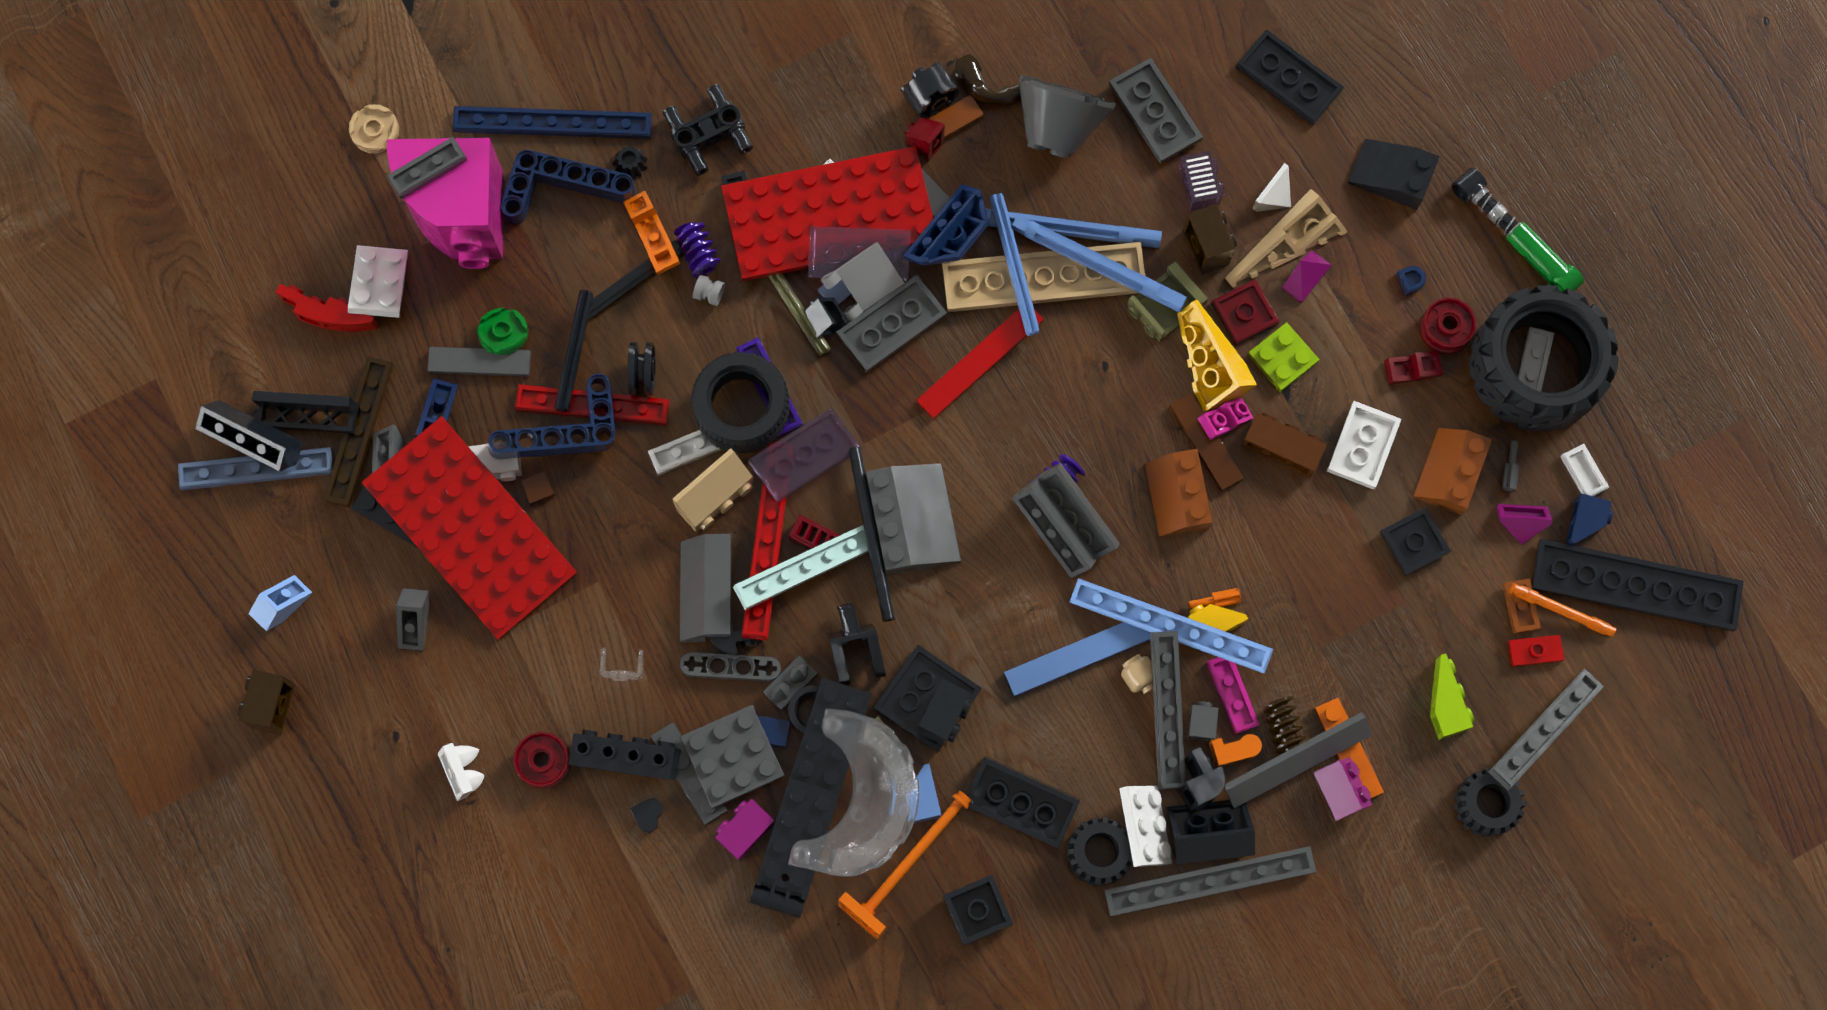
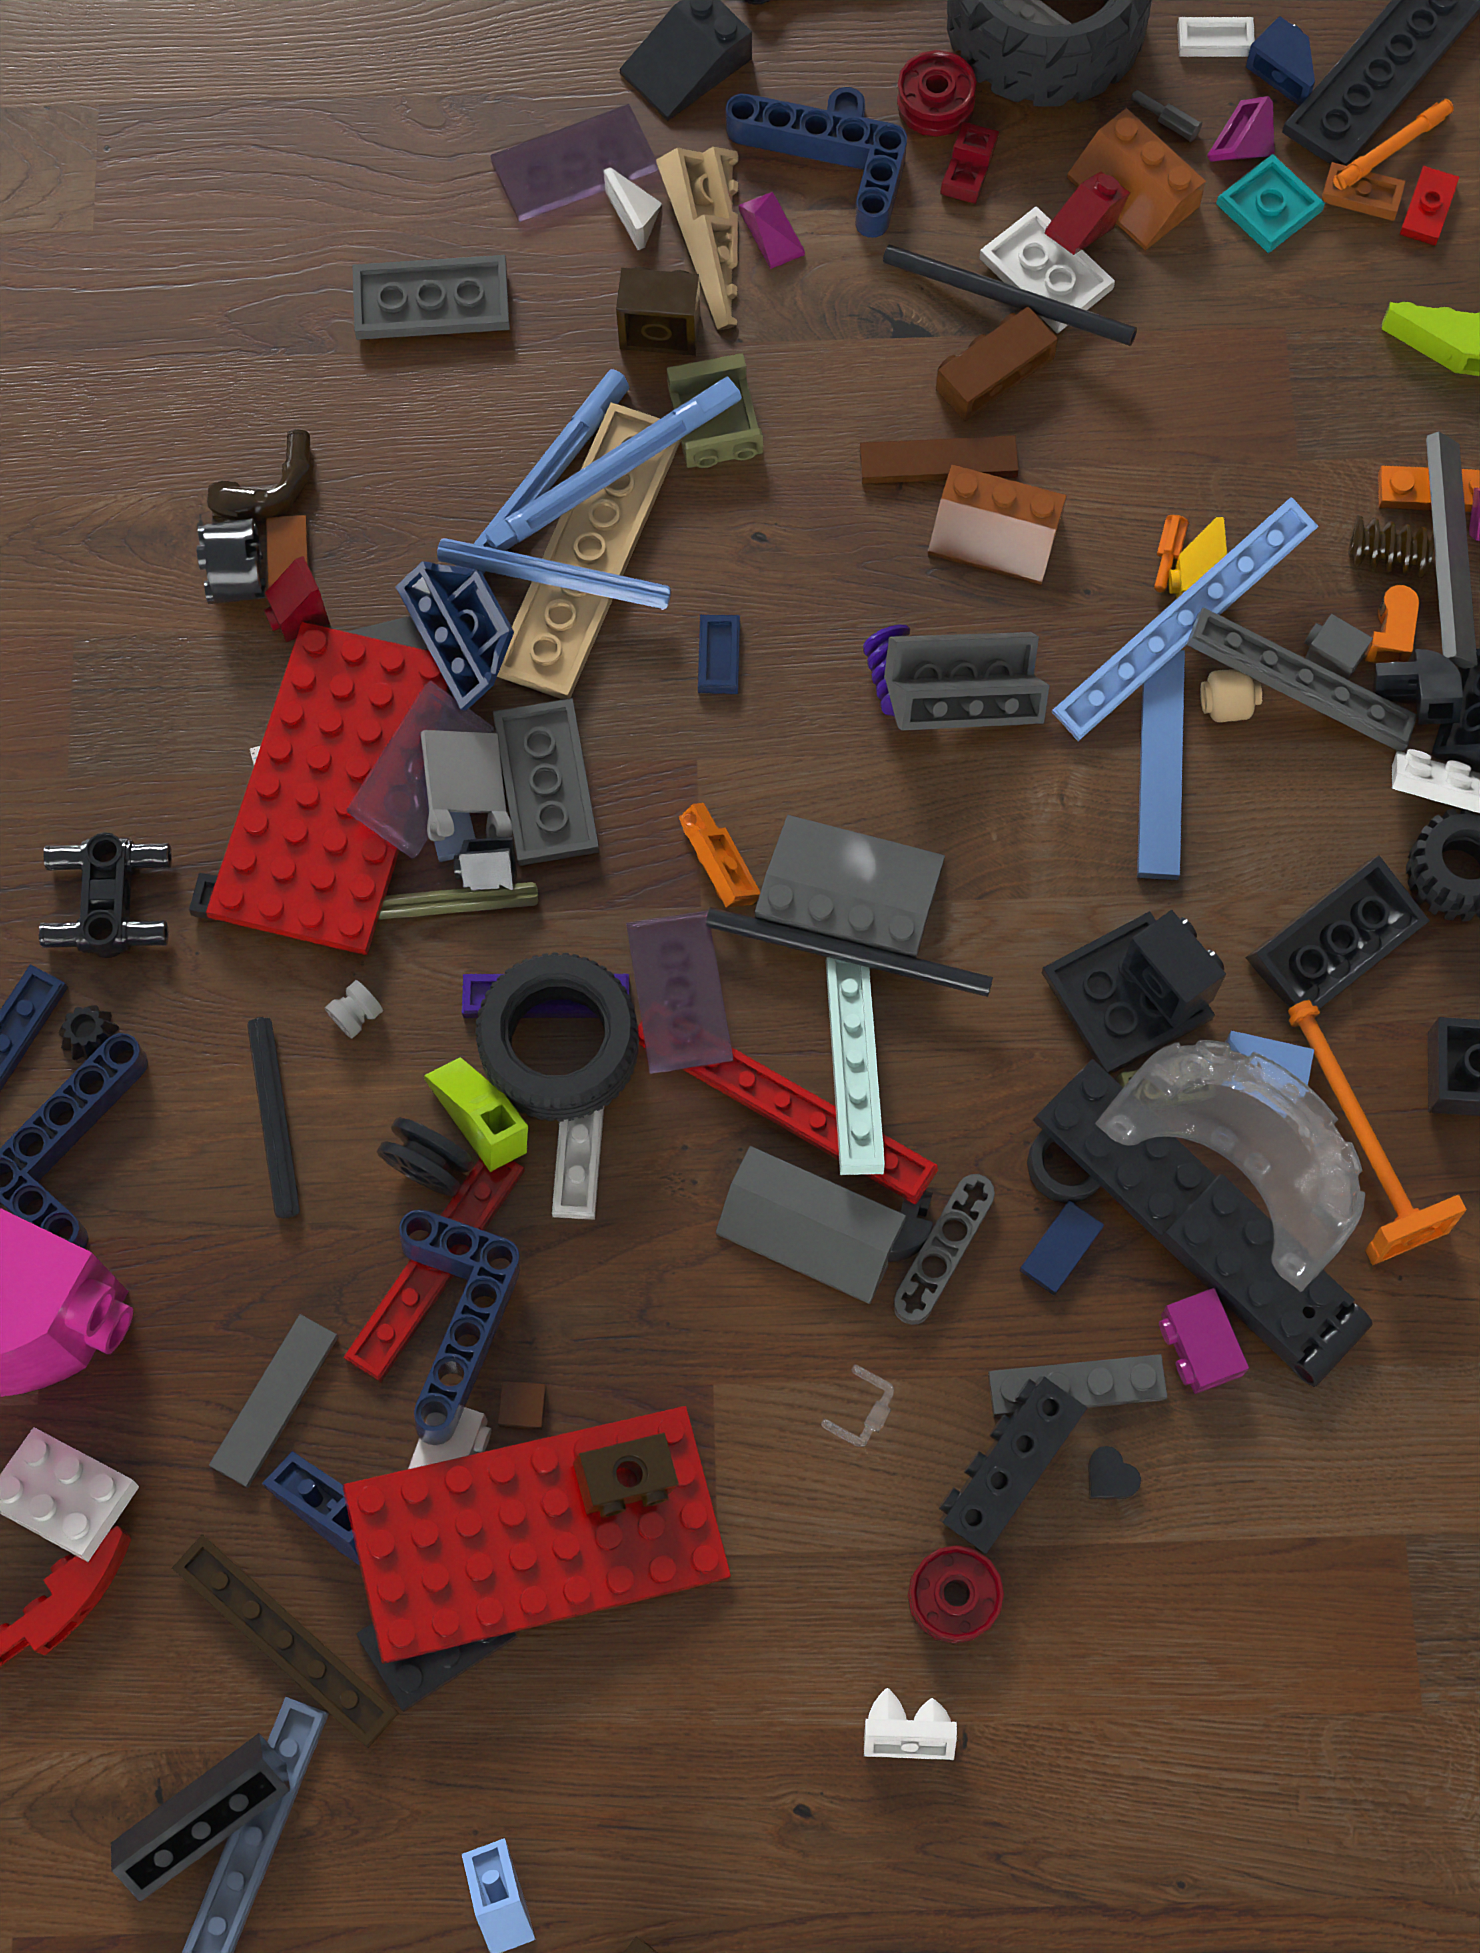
camera: 60 degrees left, 5 degrees down
(306, 402) = (195, 1699): black fence -> none
(386, 445) = (338, 1607): dark grey slope -> none
(412, 619) = (633, 1693): dark grey slope -> none
(502, 331) = (246, 1341): green tile -> none
(514, 541) = (645, 1457): none -> dark brown brick
(574, 350) = (340, 1245): black axle -> none
(651, 232) = (221, 1048): orange slope -> none
(680, 383) = (480, 1113): none -> lime slope
(696, 248) = (280, 994): dark purple piece -> none
(713, 491) = (671, 1143): tan slope -> none
(732, 756) = (1086, 1307): dark grey plate -> none
(792, 679) = (1010, 1174): dark grey tile -> none
(811, 525) = (777, 1041): dark red slope -> none
(852, 631) = (982, 1050): black piece -> none
(894, 438) = (719, 857): none -> orange hinge
(974, 365) = (667, 702): red tile -> none
(1019, 379) = (719, 654): none -> dark blue tile
(1059, 115) = (373, 407): dark grey cone -> none
(1200, 180) = (564, 288): clear purple brick -> none
(1215, 364) = (833, 393): yellow wedge -> none
(1226, 418) = (919, 417): dark pink slope -> none
(1232, 695) = (1312, 595): dark pink tile -> none
(1245, 312) = (780, 326): dark red tile -> none
(1283, 357) = (870, 309): lime plate -> none
(1288, 141) = (573, 162): none -> clear purple tile
(1289, 77) = (479, 116): black tile -> none
(1331, 431) = (1010, 295): none -> black piece
(1378, 282) = (829, 146): none -> dark blue beam
(1409, 450) = (1088, 213): none -> dark red slope
(1415, 541) = (1212, 272): black plate -> none
(1484, 555) = (1270, 203): none -> teal tile

